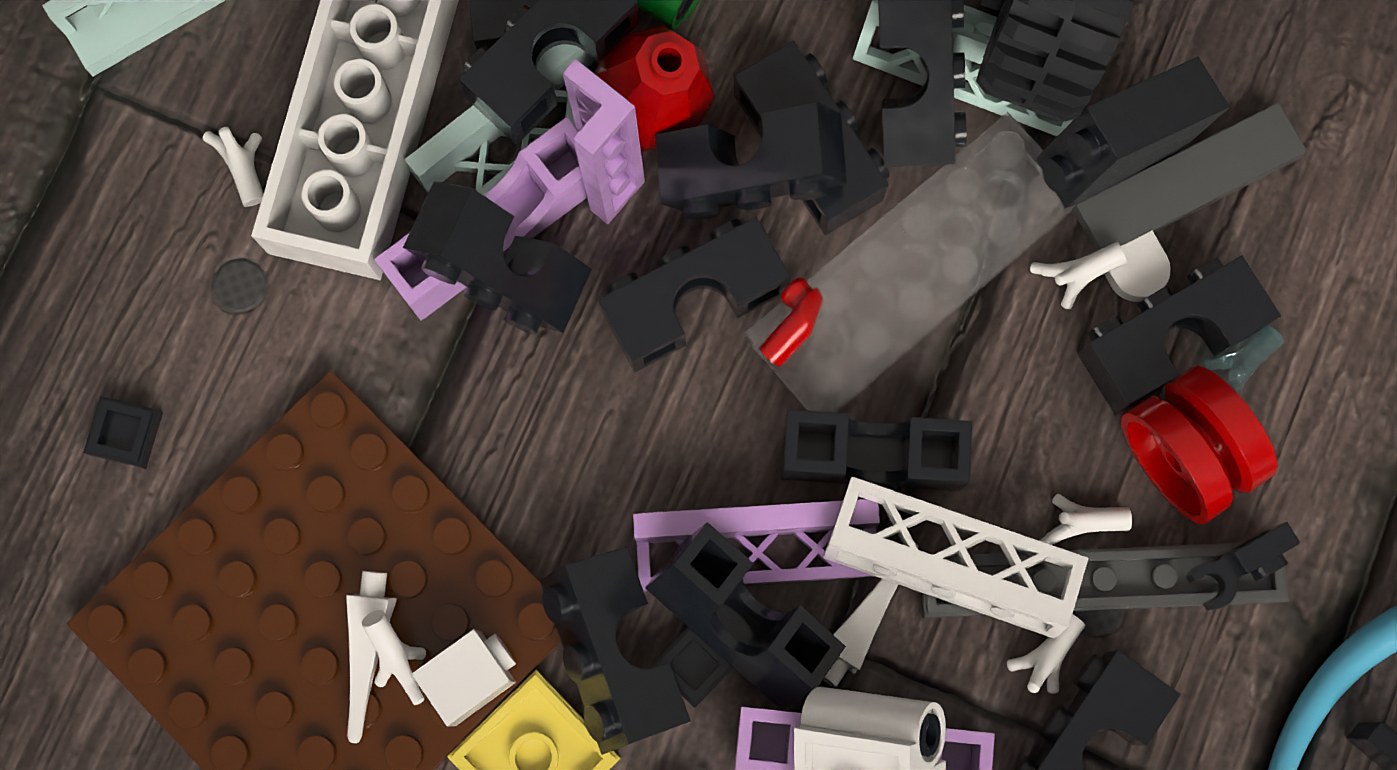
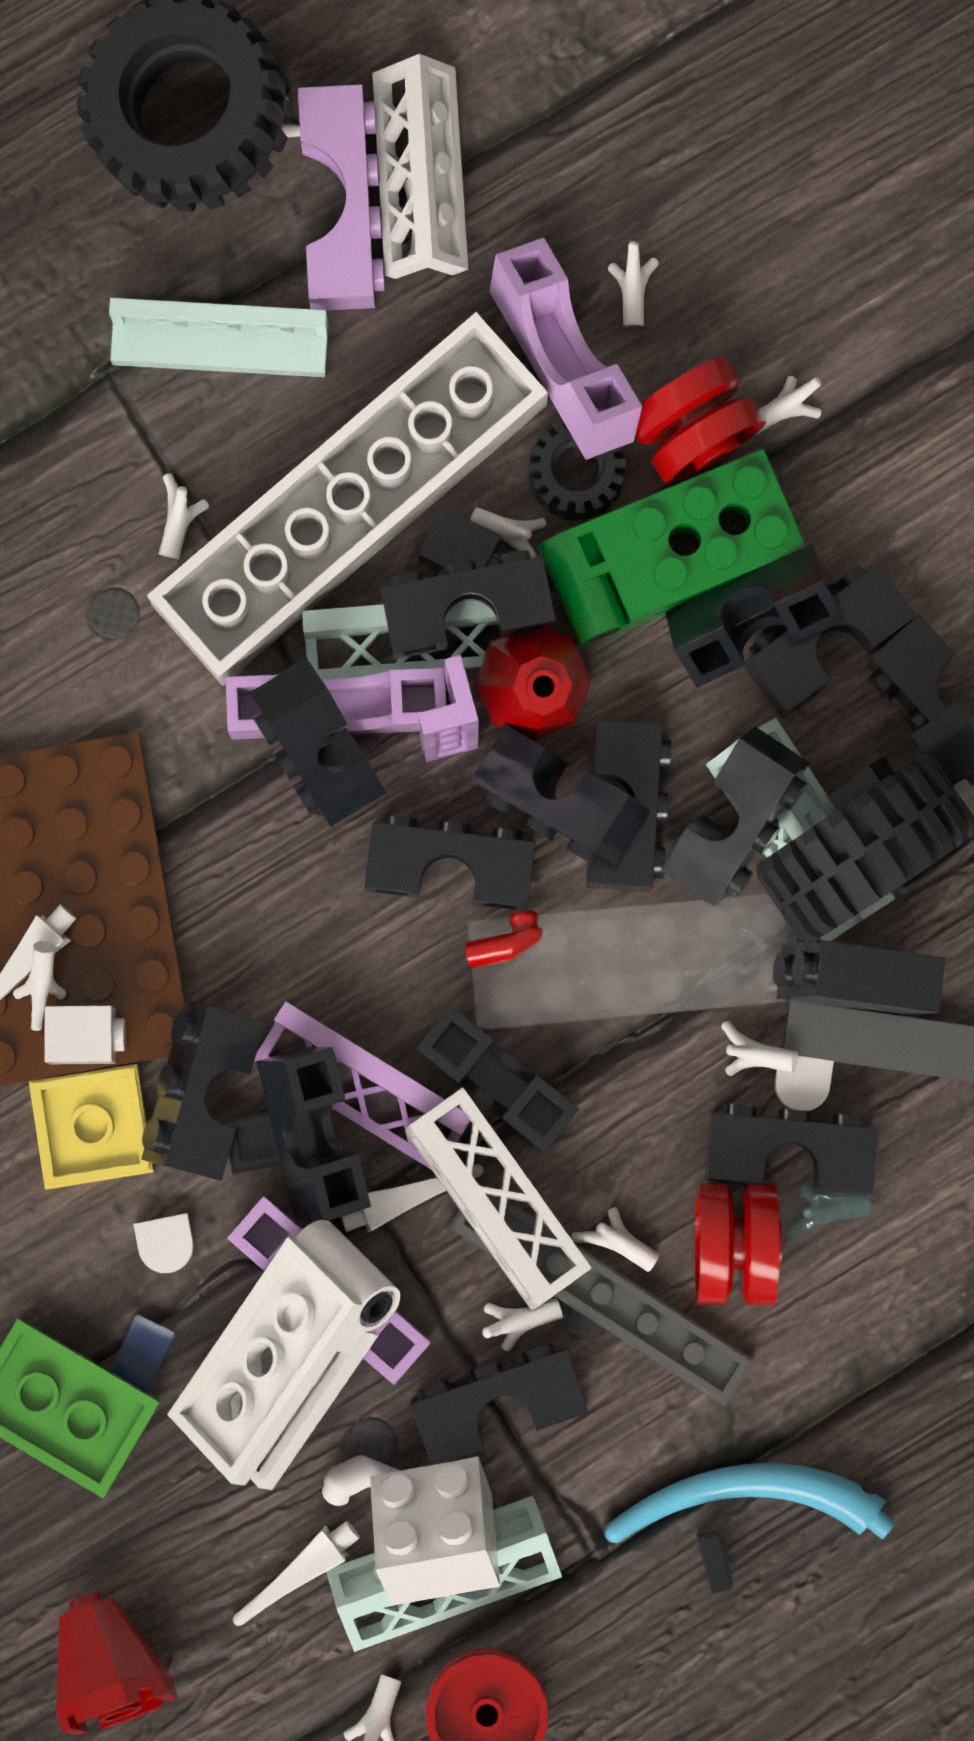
camera: 30 degrees right, 5 degrees up
(1257, 556) = (721, 1355): black plate -> none

